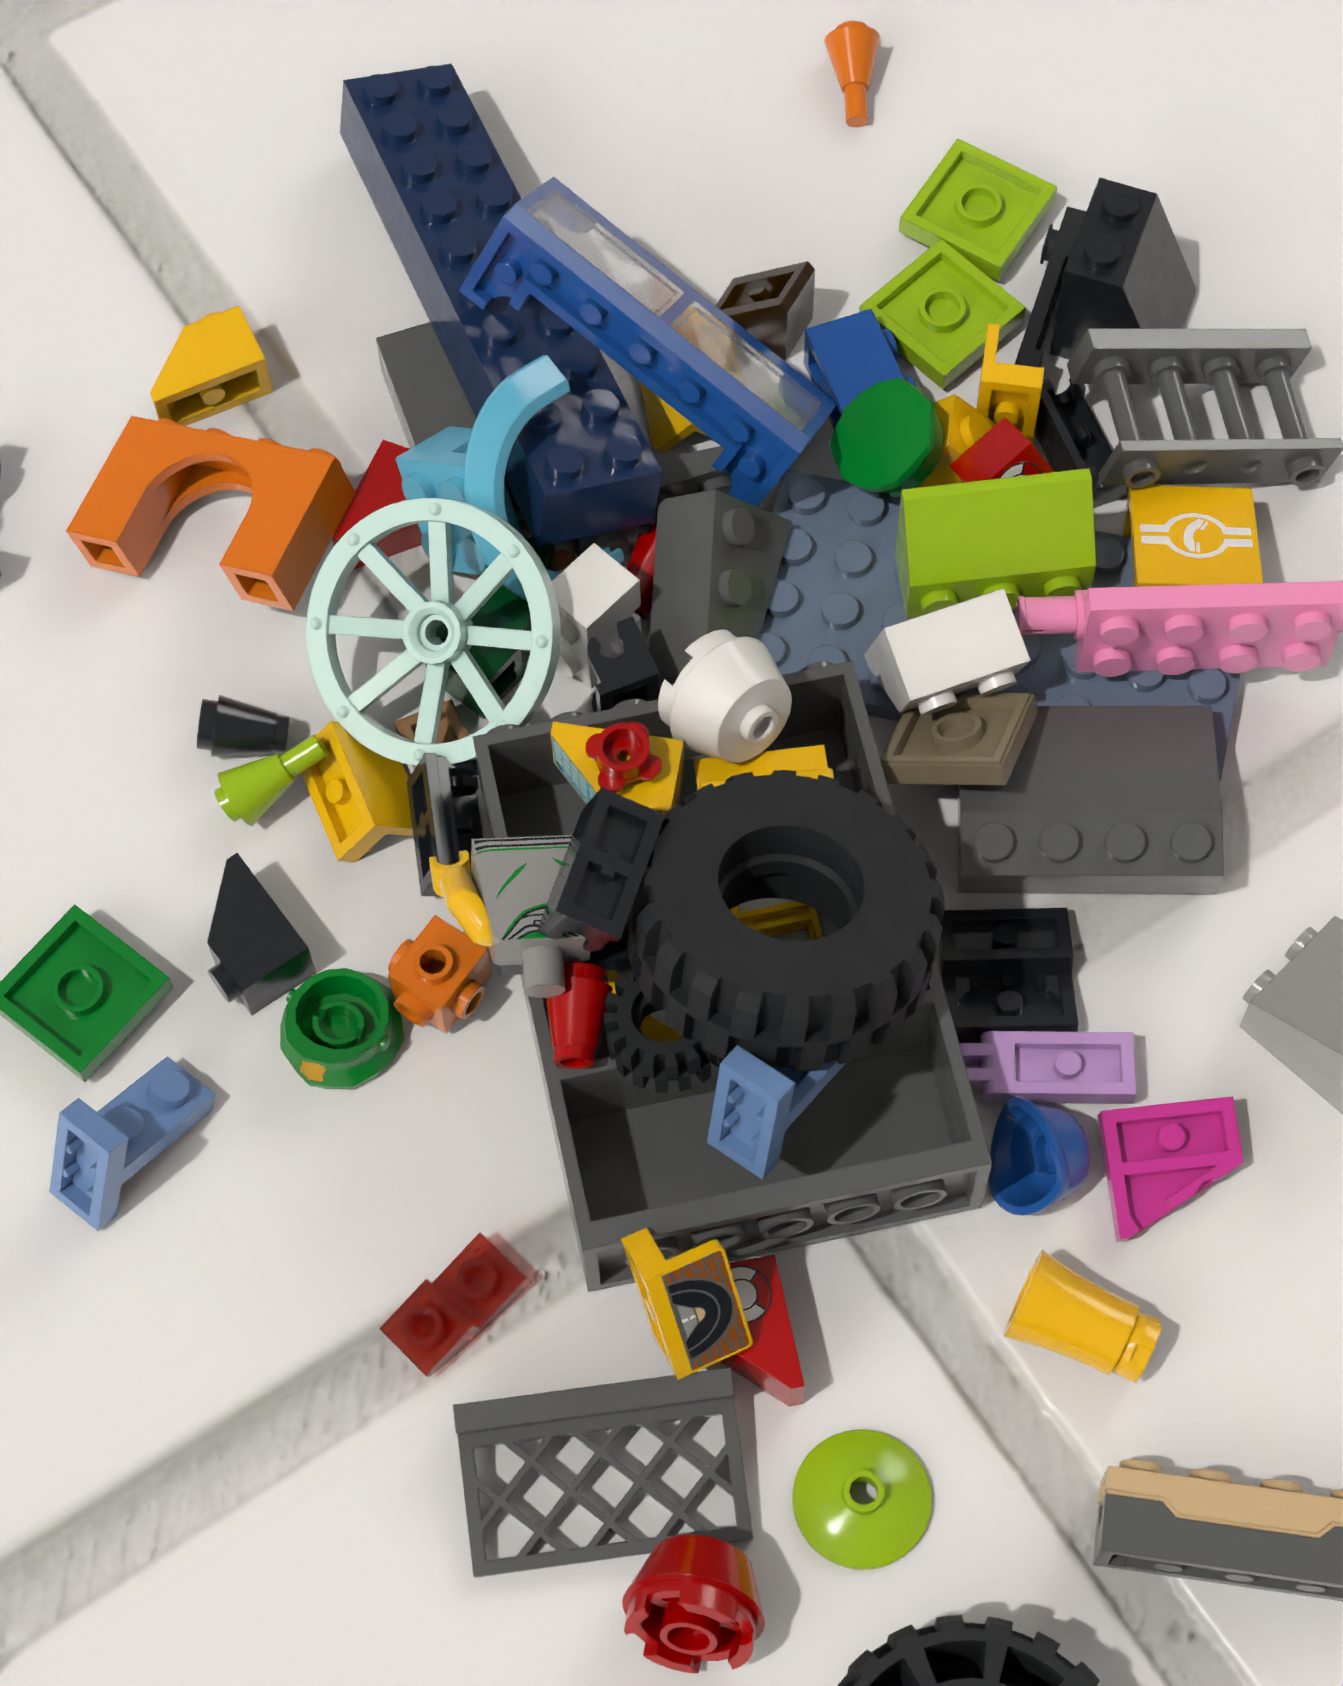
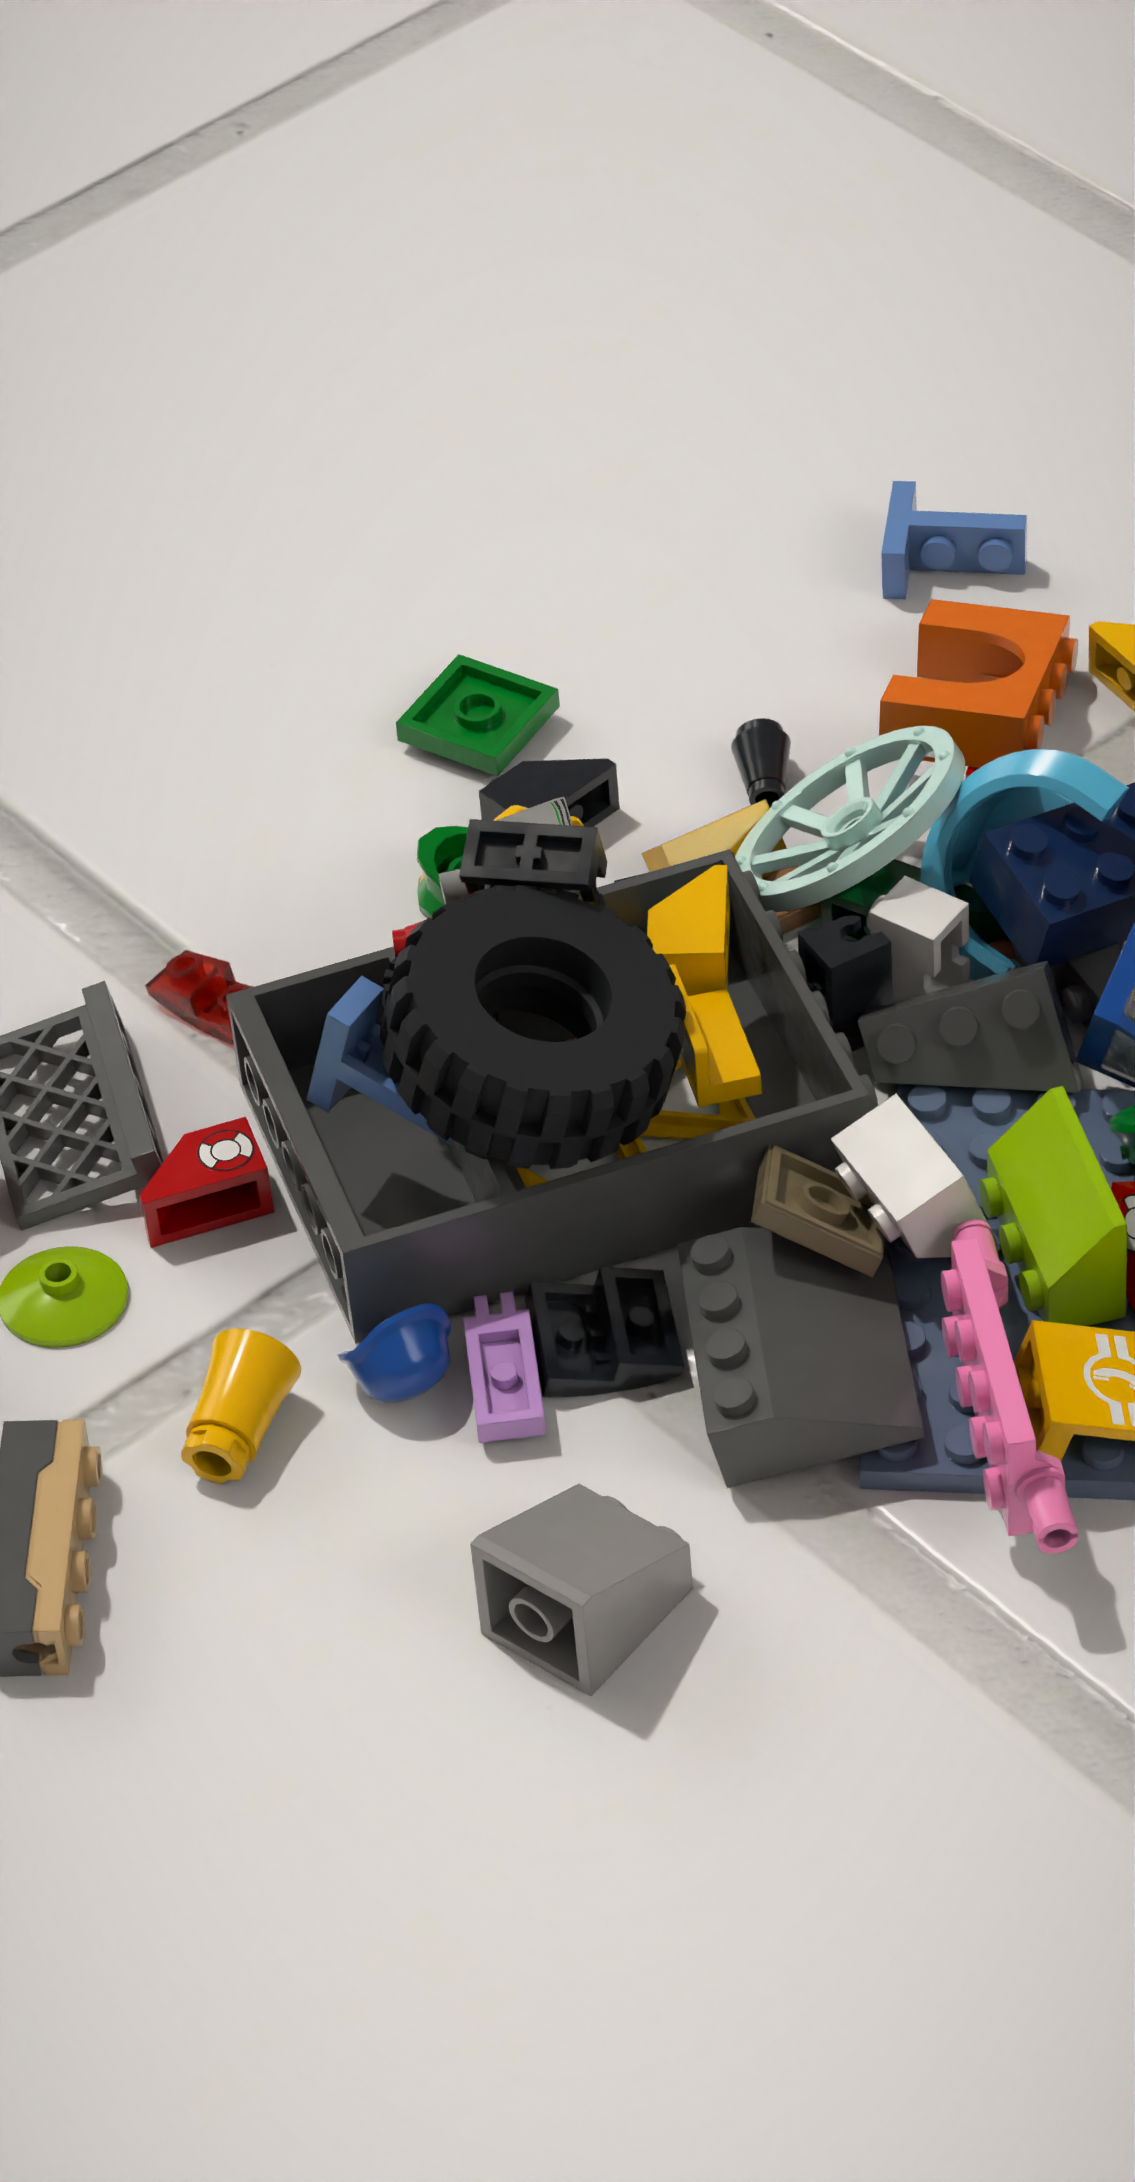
camera: 85 degrees right, 20 degrees down
(109, 1146) = (339, 756): medium blue bracket -> none
(256, 786) = (696, 776): lime cone -> none
(618, 739) = (688, 902): red plate -> none
(688, 1302) = (191, 1076): panel -> none
(726, 698) = (776, 974): white cone -> none
(1165, 1157) = (416, 1463): dark pink wing -> none

